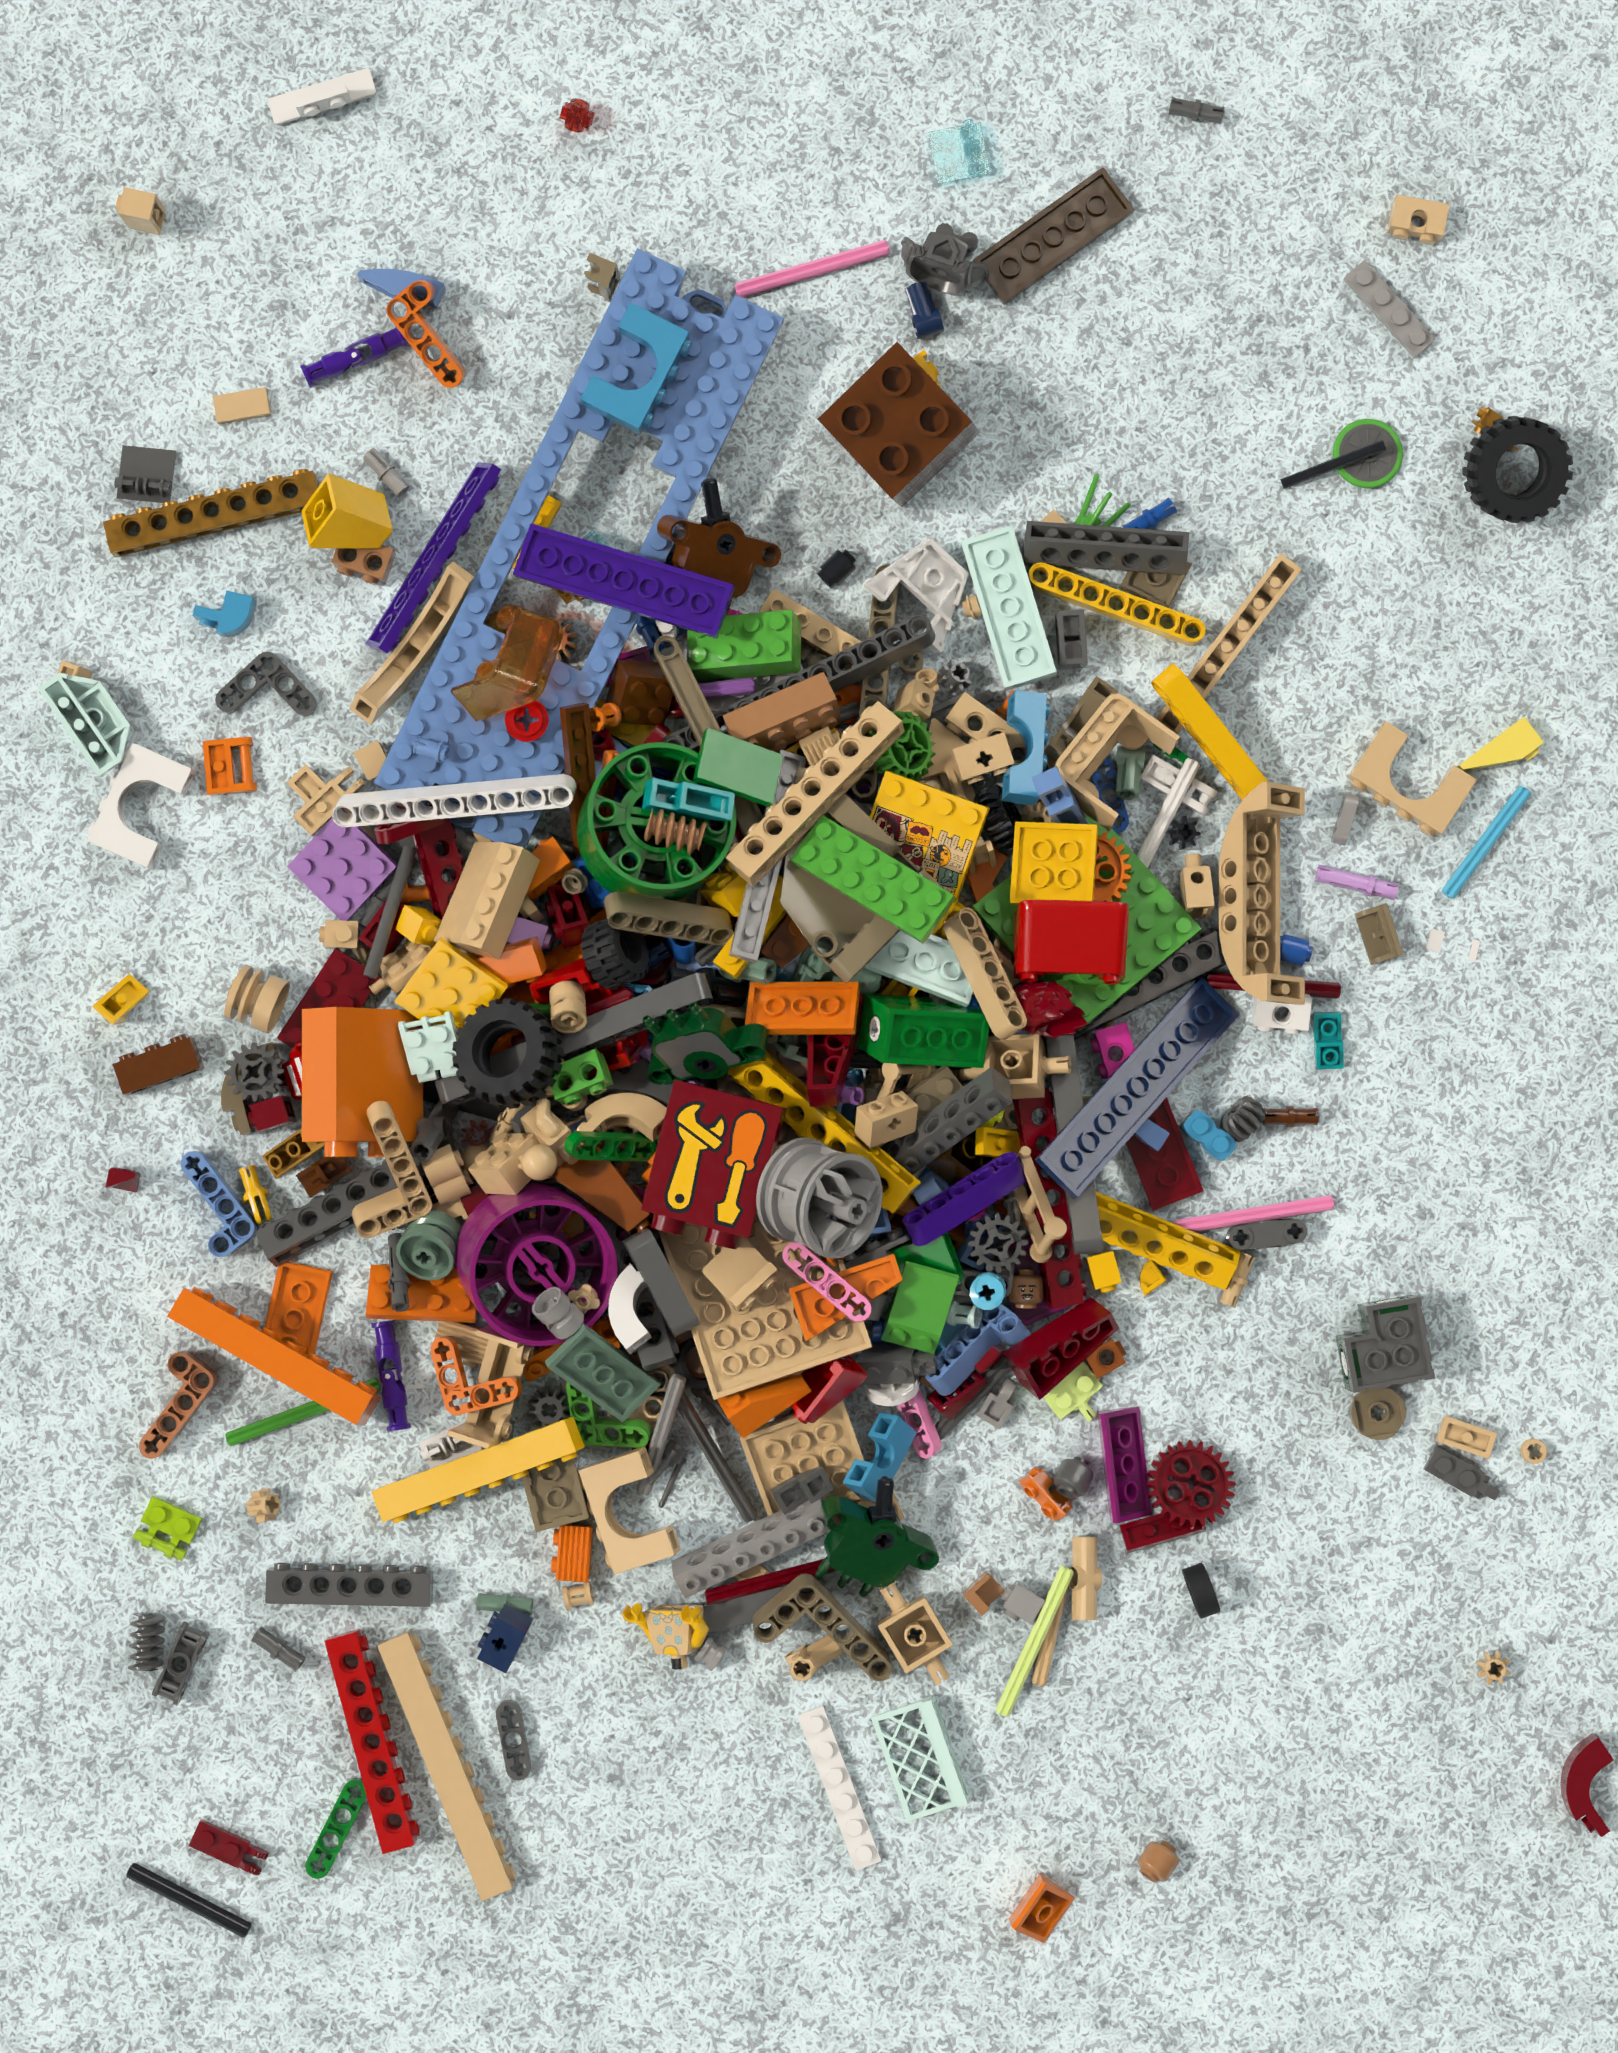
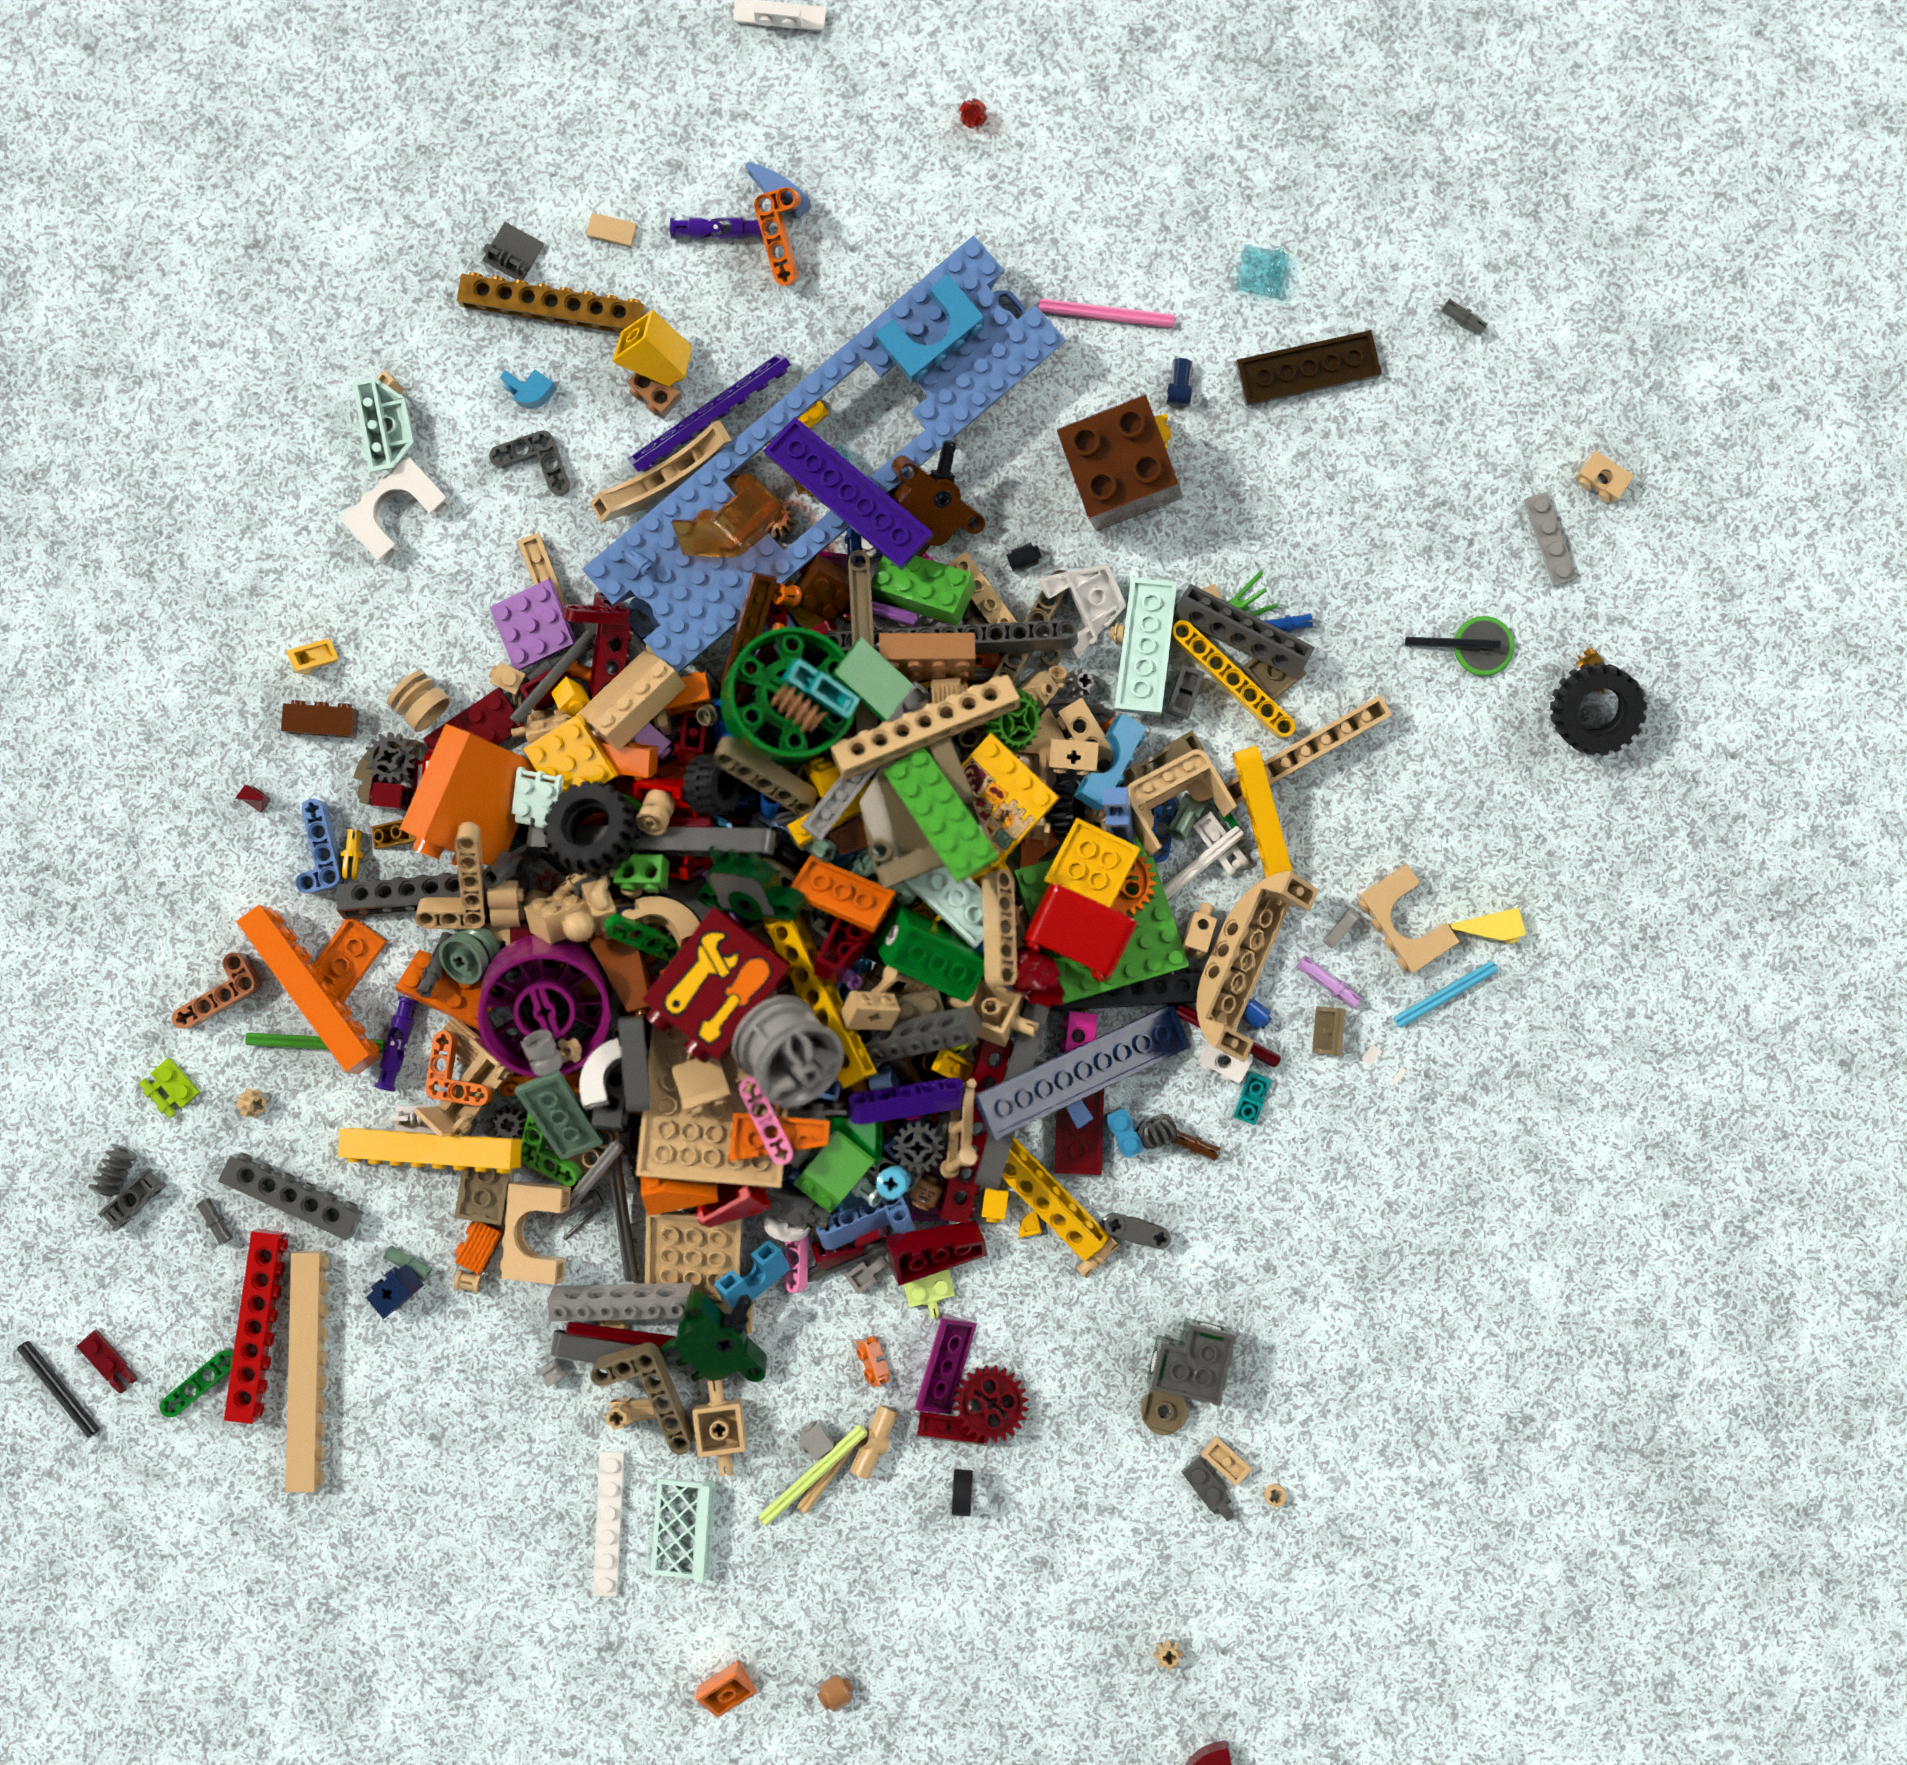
camera: 20 degrees right, 0 degrees up
(141, 210) = (597, 42): tan brick -> none
(220, 767) = (471, 506): orange plate -> none
(320, 807) = (541, 569): tan hinge -> none
(323, 1174) = (410, 862): reddish brown hips -> none
(371, 759) = (590, 549): tan panel -> none
(385, 472) = (701, 330): light grey axle -> none
(463, 792) = (627, 612): white beam -> none
(523, 1758) = (366, 1355): dark grey beam -> none
(535, 730) = (727, 581): red gear -> none
(605, 274) = (940, 246): dark tan hinge -> none
(671, 1629) = (529, 1340): torso -> none
(801, 1488) = (682, 1274): dark grey slope -> none
(943, 261) = (1213, 355): dark grey piece -> none
(983, 1592) = (788, 1418): medium nougat panel -> none
(1073, 1477) = (899, 1358): dark grey head -> none
(1100, 1369) = (959, 1282): dark orange brick -> none
(1179, 839) = (1202, 887): black gear -> none
(1257, 1214) = (1135, 1211): bright pink axle -> none

